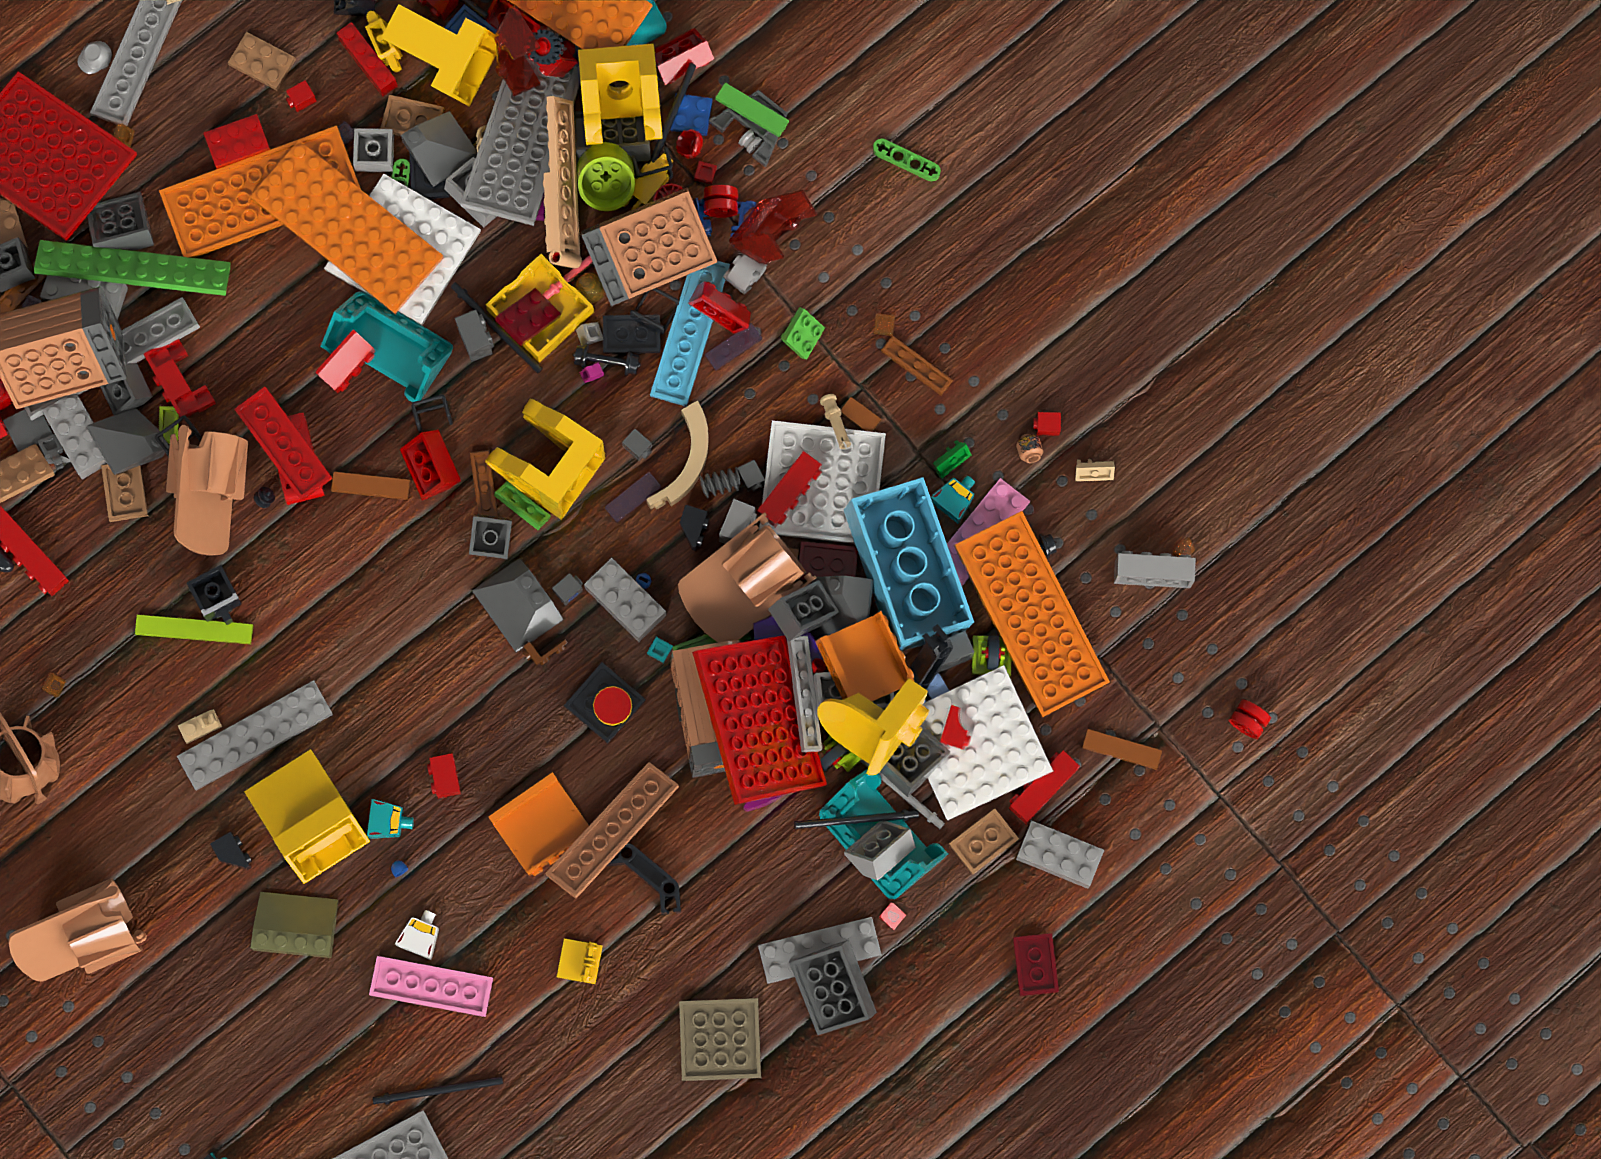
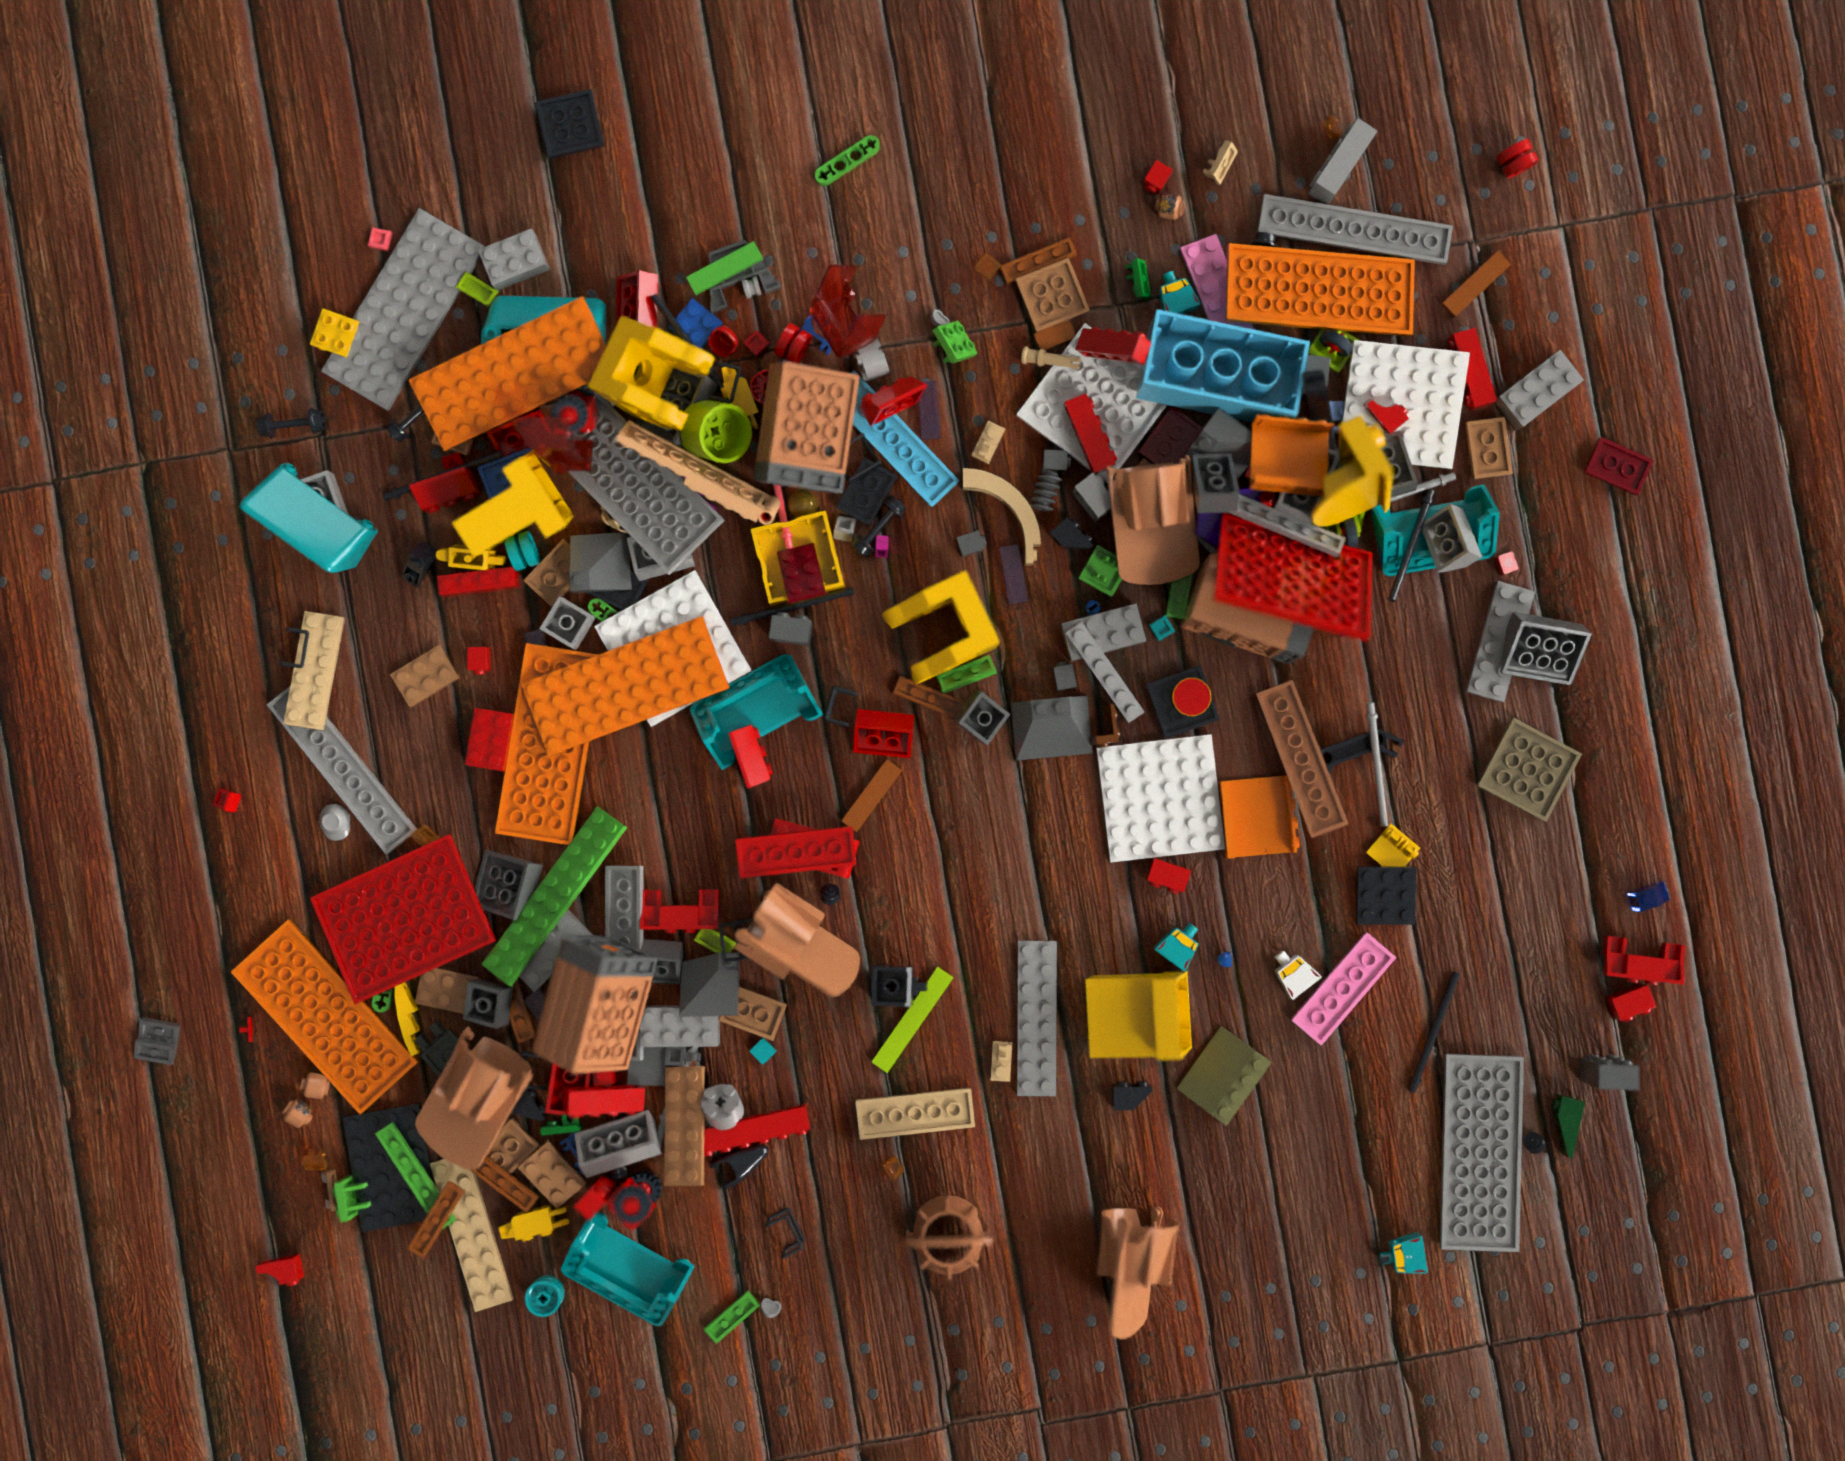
camera: 50 degrees left, 10 degrees up
(27, 507) = (722, 1106): none -> light grey brick
(95, 518) = (763, 1051): none -> teal tile
(112, 677) = (915, 1113): none -> tan plate
(413, 79) = (522, 551): none -> teal wheel
(509, 732) = (1160, 798): none -> white plate
(535, 977) = (1386, 895): none -> black plate
(590, 617) = (1104, 671): none -> light grey plate
(675, 567) = (1102, 571): none -> bright green plate
(683, 866) = (1371, 716): none -> light grey bar
(735, 411) = (988, 442): none -> tan plate
(816, 310) = (938, 318): none -> light grey piece
(874, 461) = (1113, 345): none -> red brick
(893, 393) = (1052, 295): none -> medium nougat plate
(1105, 617) = (1355, 229): none -> light grey plate

